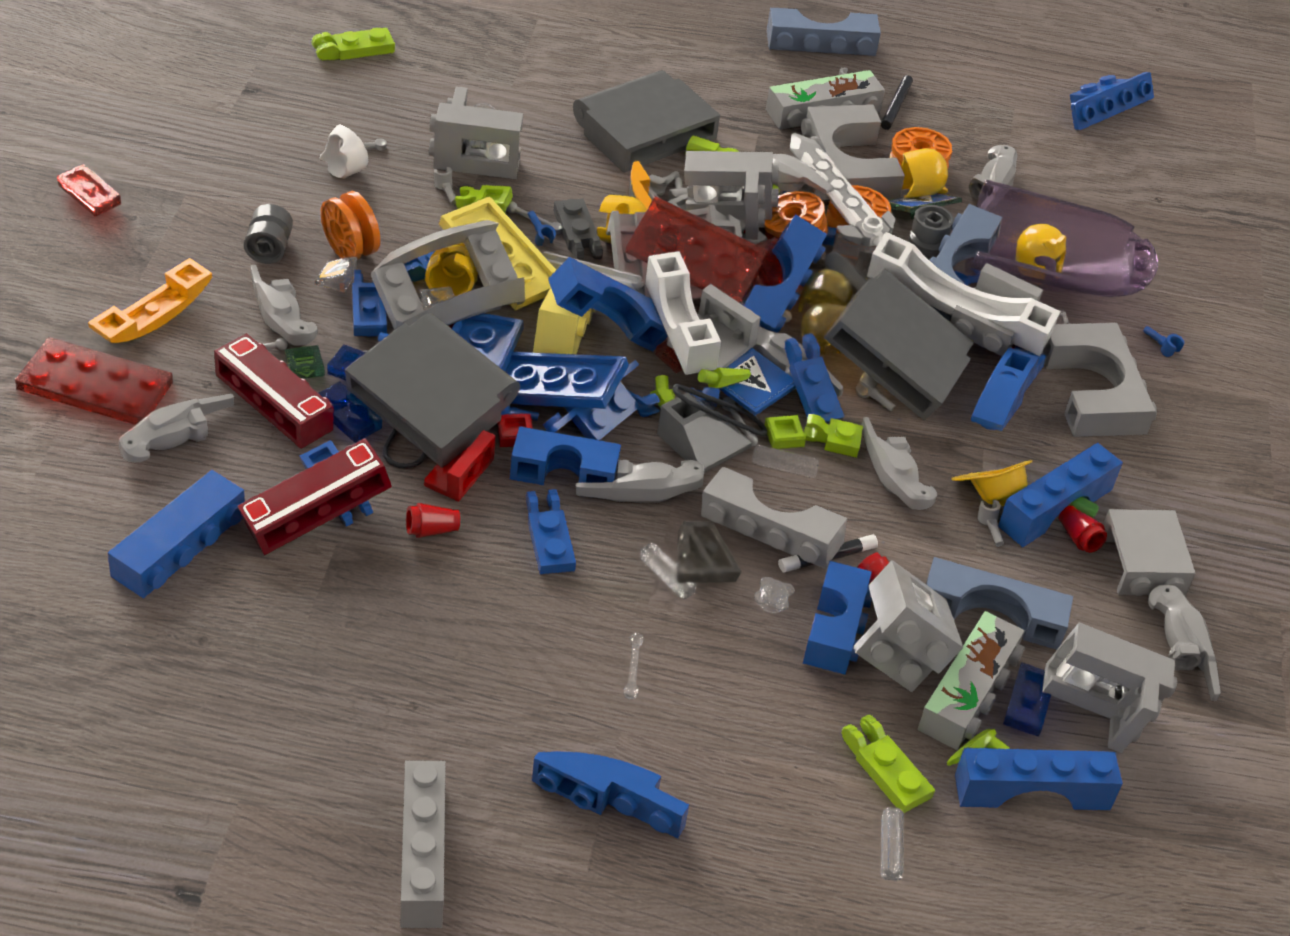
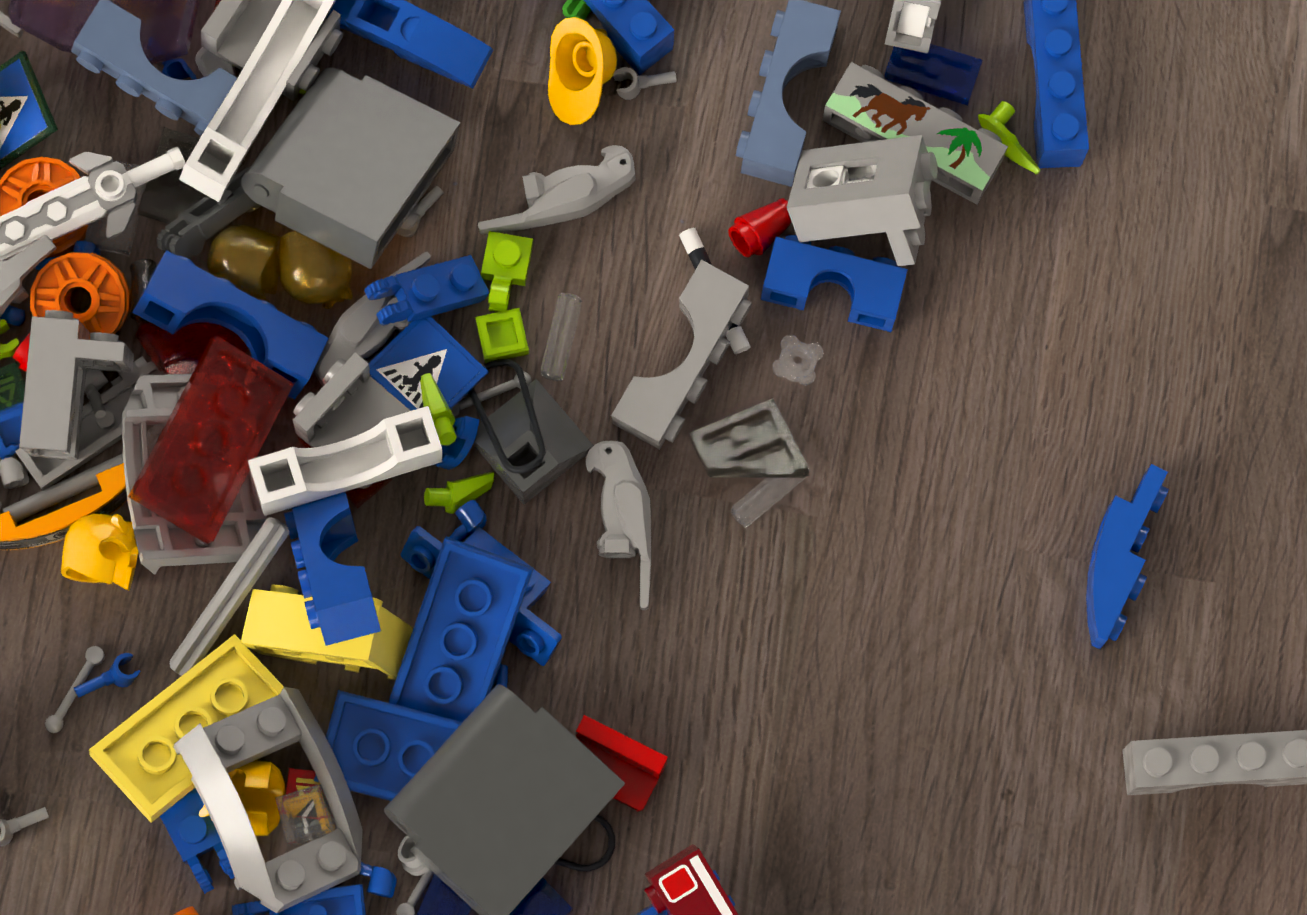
camera: 90 degrees left, 30 degrees up
(431, 520) = (721, 793): red cone -> none
(500, 194) = (50, 755): lime plate -> none
(509, 426) = (537, 690): red tile -> none
(542, 451) = (602, 582): blue arch -> none
(550, 535) = (722, 641): blue hinge -> none
(577, 228) = (98, 622): dark grey hinge -> none
(631, 689) = (959, 536): clear hinge -> none
(887, 765) = (1042, 240): lime hinge -> none
(892, 844) = (1149, 244): clear axle -> none
(929, 228) = (87, 105): dark grey wheel -> none

